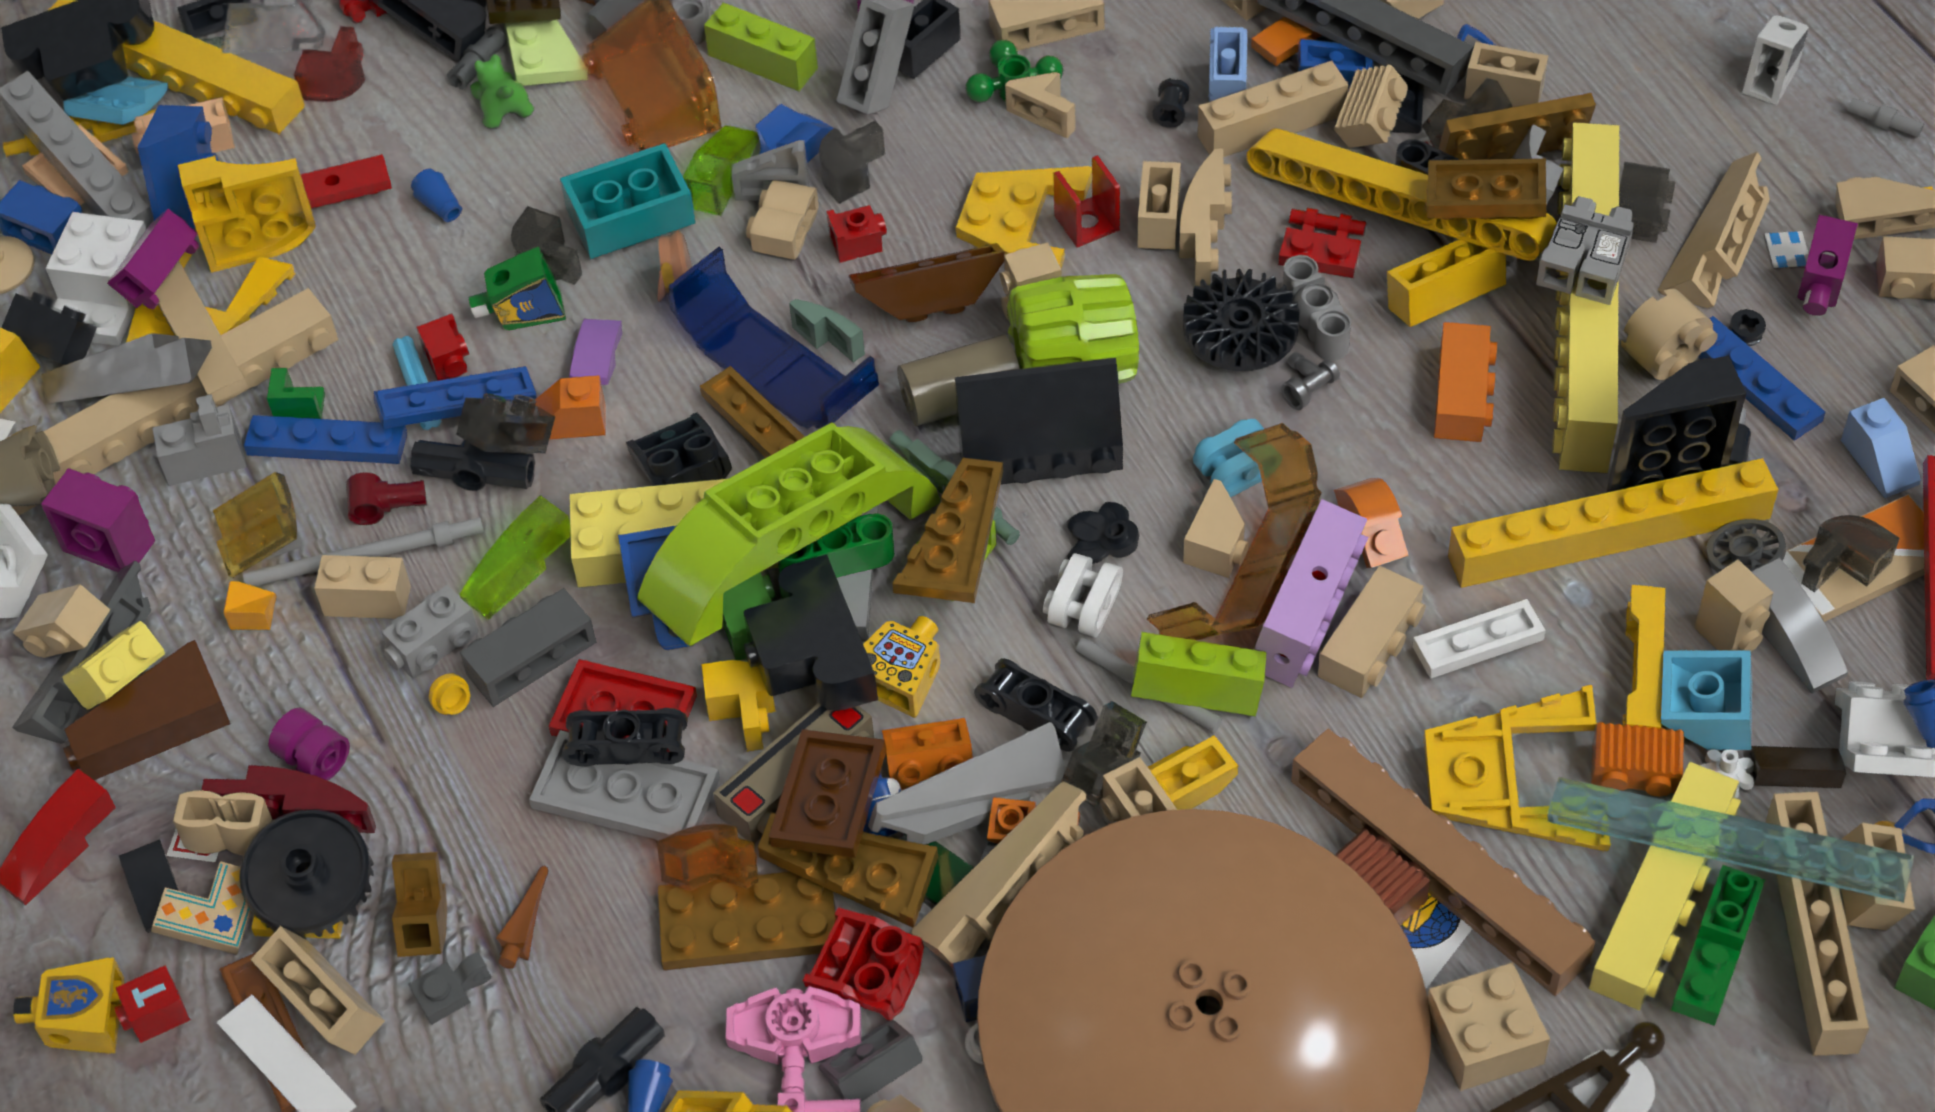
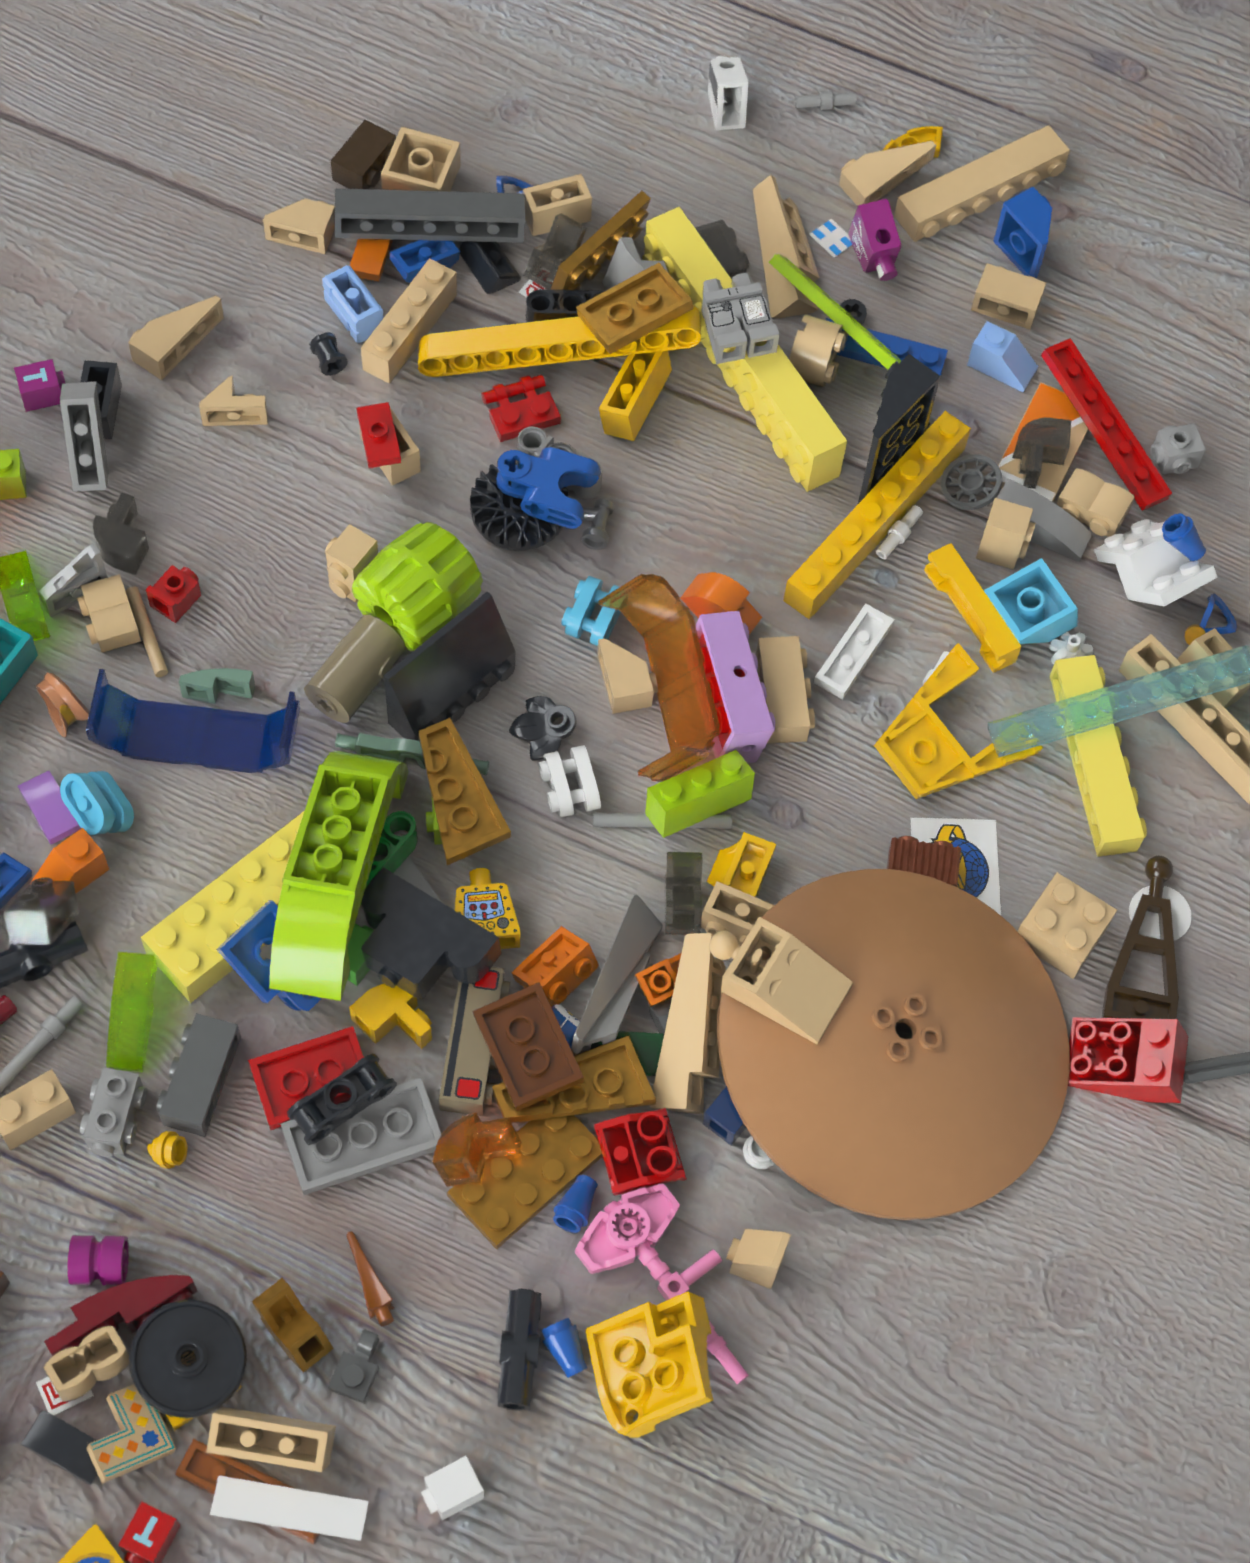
camera: 45 degrees left, 10 degrees up
(634, 366) = (97, 802): none -> medium azure brick
(681, 453) = (191, 852): black slope -> none
(749, 412) = (231, 790): pearl gold plate -> none
(765, 972) = (575, 1206): none -> blue cone
(787, 126) = (57, 540): blue slope -> none
(805, 255) = (146, 632): none -> tan bar
(873, 1063) = (696, 1217): dark grey slope -> none
(931, 284) = (270, 600): reddish brown wedge -> none
(1007, 205) = (270, 510): yellow wing -> none
(1010, 67) = (171, 382): green piece -> none
(1015, 691) = (584, 877): black piece -> none
(1102, 205) = (342, 465): red piece -> none
(1111, 869) = (789, 987): none -> tan slope
(1145, 184) = (378, 435): none -> red plate
(1204, 215) = (423, 427): tan slope -> none
(1269, 303) = (541, 480): none -> blue piece
(1371, 106) = (482, 280): tan brick -> none
(1459, 870) = (978, 830): medium nougat brick -> none
(1464, 382) = (702, 463): orange brick -> none
(1625, 555) = (899, 532): none -> white bar
(1637, 758) = (1016, 677): orange brick -> none
(1718, 945) = (1156, 777): green slope -> none
(1719, 311) = (834, 310): none -> lime tile
(1797, 767) = (1111, 619): dark brown slope -> none
(1872, 641) = (1095, 503): none -> tan brick

